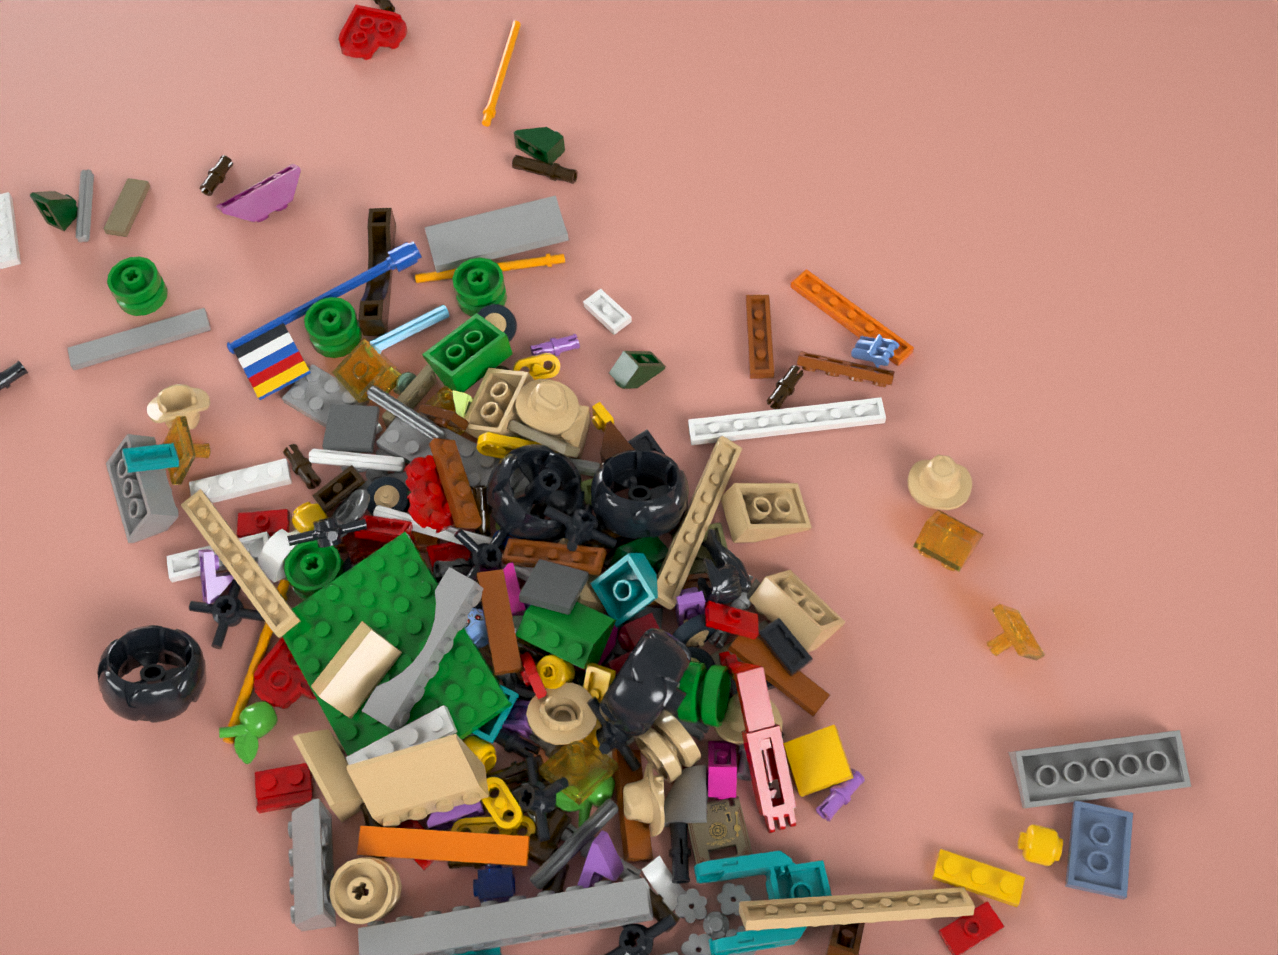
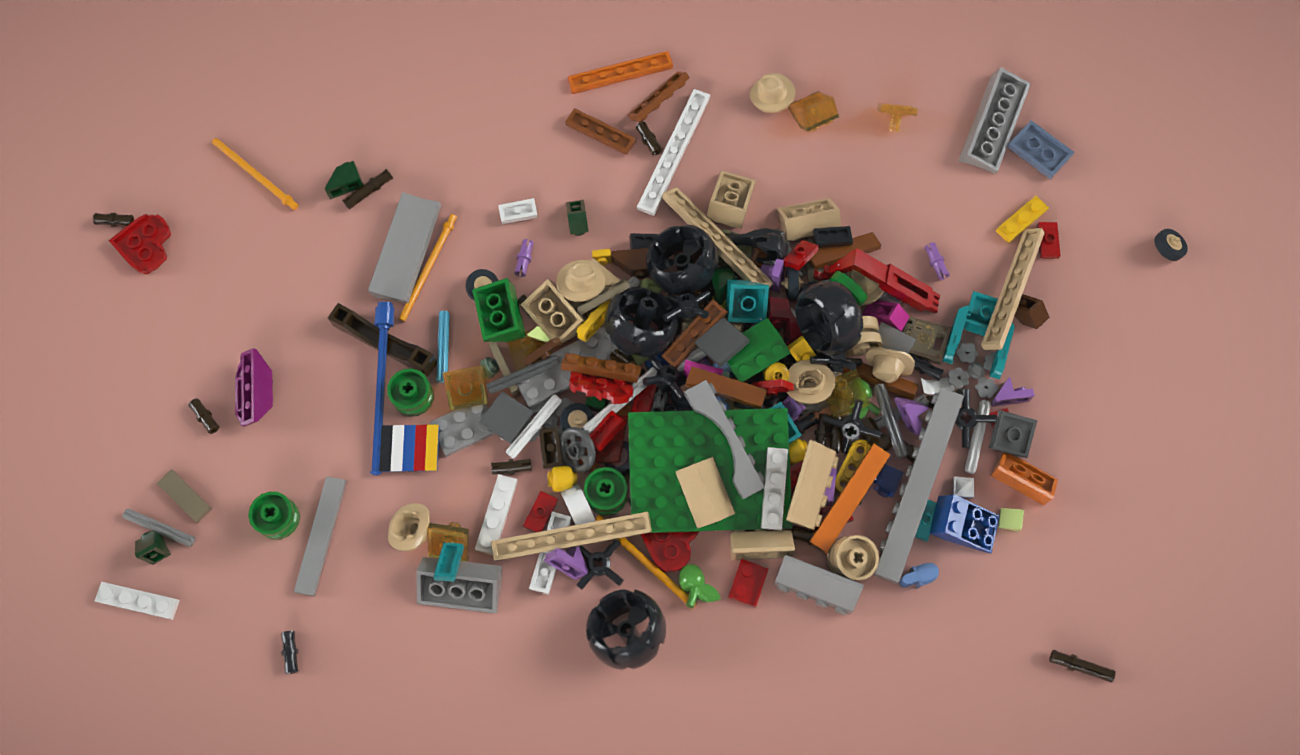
camera: 60 degrees left, 10 degrees up
(327, 532) = (593, 464): black bar -> none
(478, 284) = (444, 280): green wheel -> none
(502, 804) = (841, 448): yellow plate -> none
(536, 368) = (534, 278): yellow plate -> none
(818, 760) = (912, 258): yellow tile -> none
(874, 350) = (657, 73): medium blue arm -> none
(1040, 845) = (1024, 176): yellow head -> none

